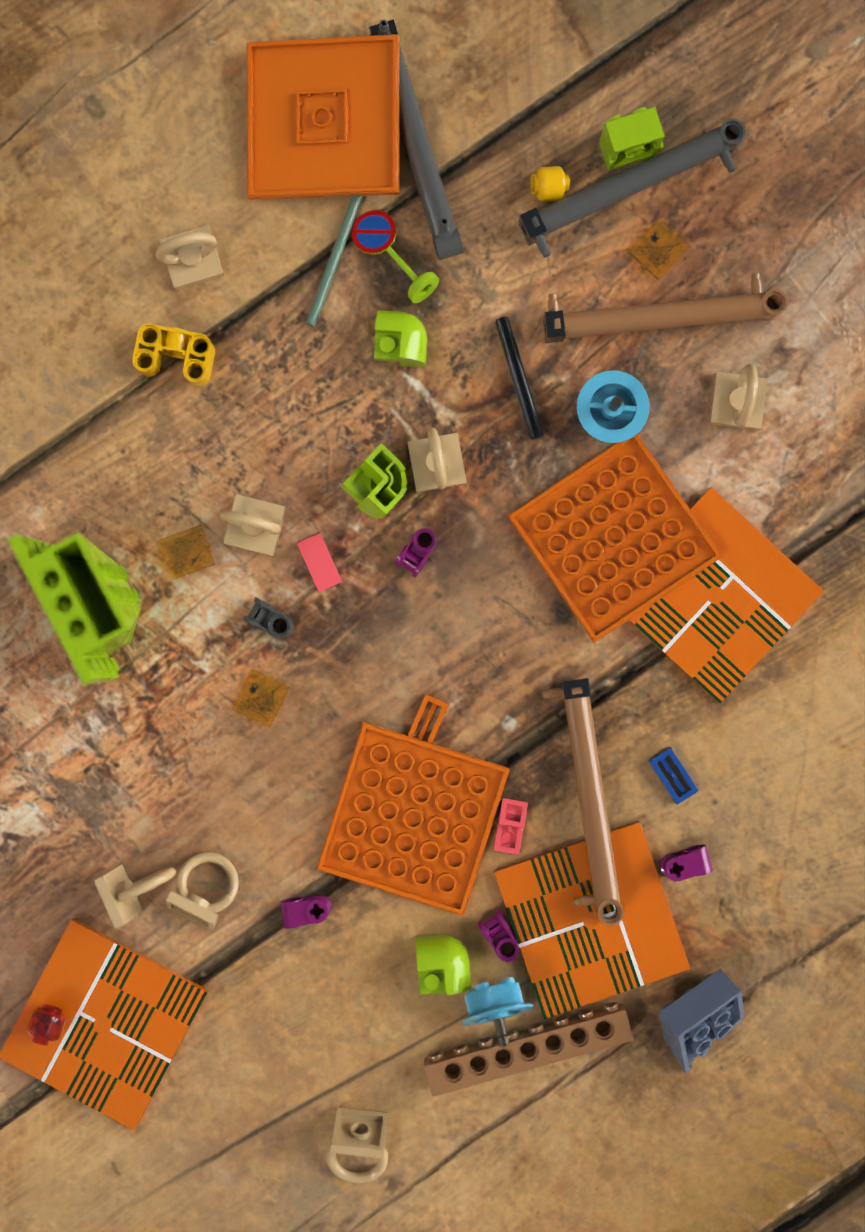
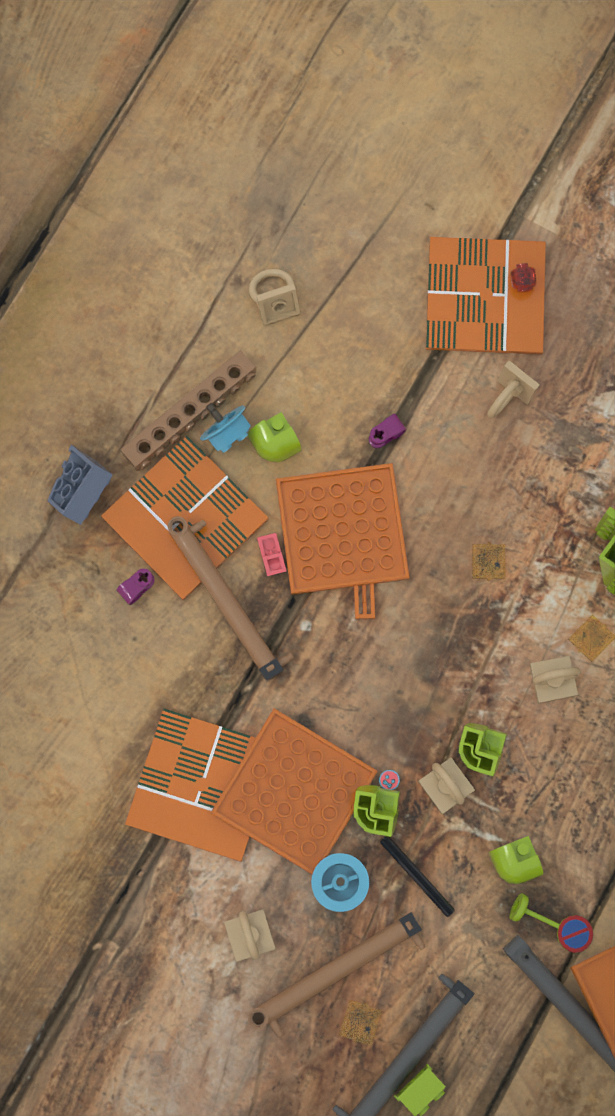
camera: 155 degrees right, 10 degrees down
(195, 907) = (463, 398): tan tile -> none
(265, 618) = (511, 617): dark grey piece -> none
(319, 561) = (495, 674): coral slope -> none
(333, 260) = (593, 898): sand green bar -> none
(416, 553) = (429, 711): magenta piece -> none
(497, 932) = (245, 477): magenta piece -> none
(499, 499) = (389, 780): none -> tile
(531, 470) = (376, 809): none -> lime brick
(549, 183) = (464, 1031): yellow head -> none
(661, 757) = (187, 651): blue tile -> none

